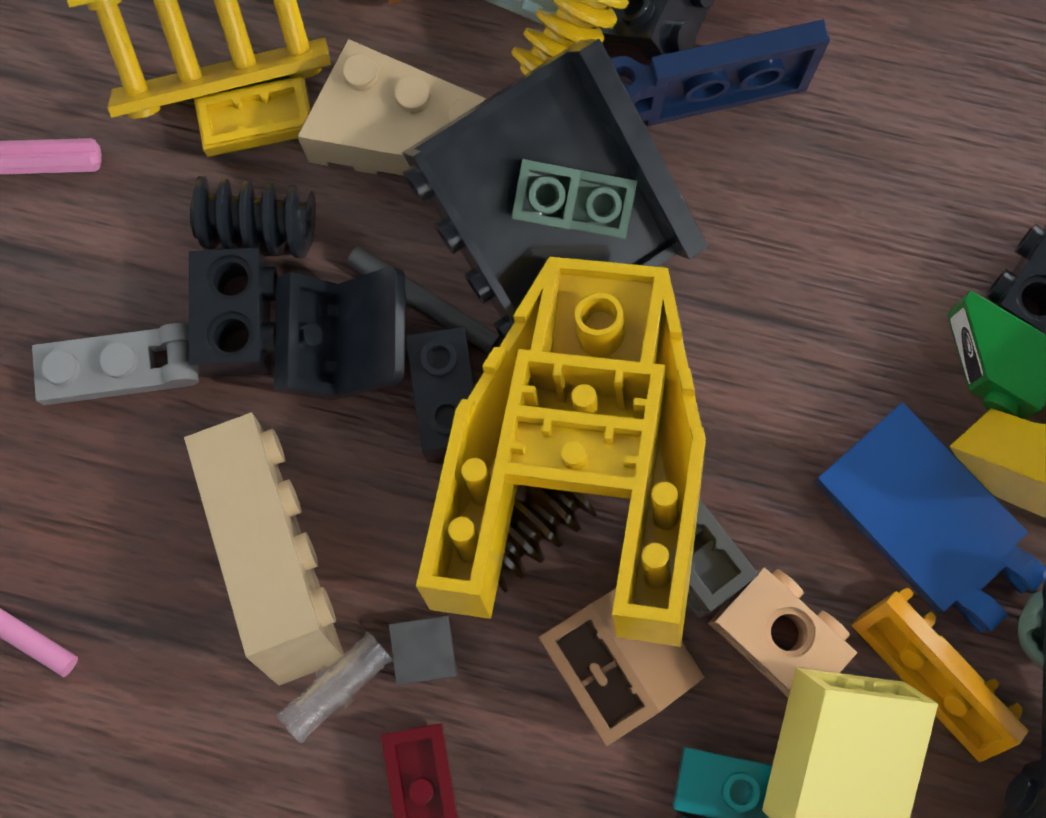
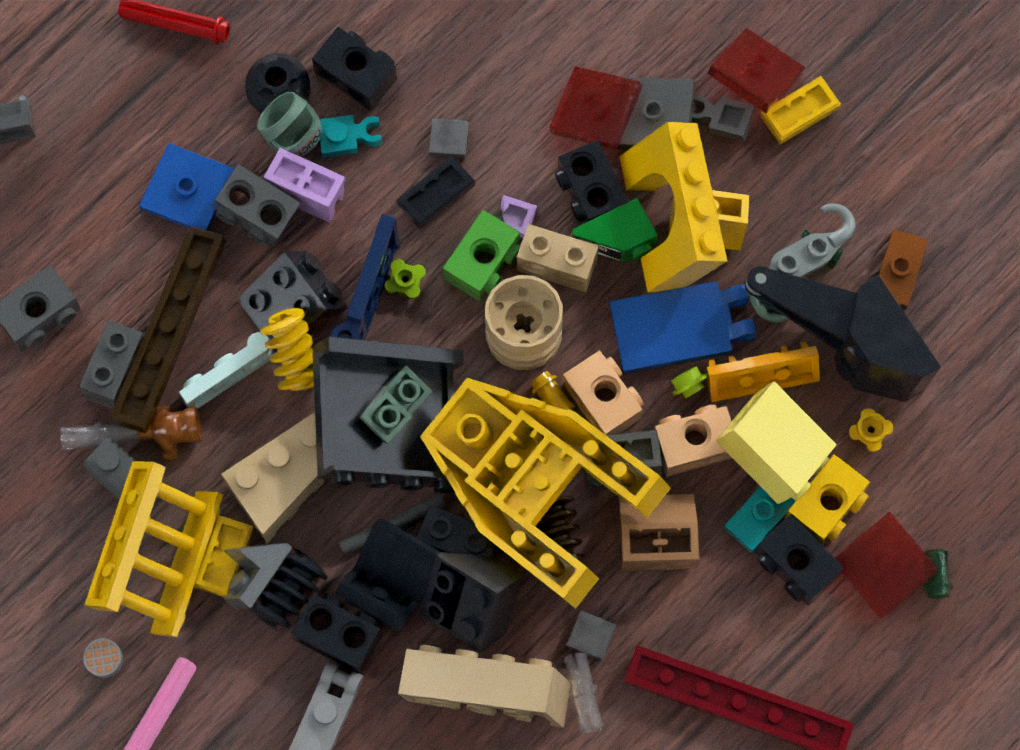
camera: 60 degrees left, 5 degrees down
(46, 52) = (103, 658): none -> tile
(266, 161) = (259, 566): none -> dark grey slope
(368, 458) = (471, 597): none -> black slope
(724, 400) = (550, 392): none -> yellow pin
(755, 138) = (405, 289): none -> lime plate
(775, 436) = (600, 373): none -> light nougat brick
(817, 278) = (529, 304): none -> tan wheel
(858, 578) = (688, 382): none -> lime plate
(882, 183) = (489, 236): none -> bright green brick
(902, 92) = (435, 192): none -> black plate
(917, 296) = (557, 258): none -> tan brick
(940, 216) = (517, 214): none -> lavender tile
(985, 67) = (448, 138): none -> flat silver tile

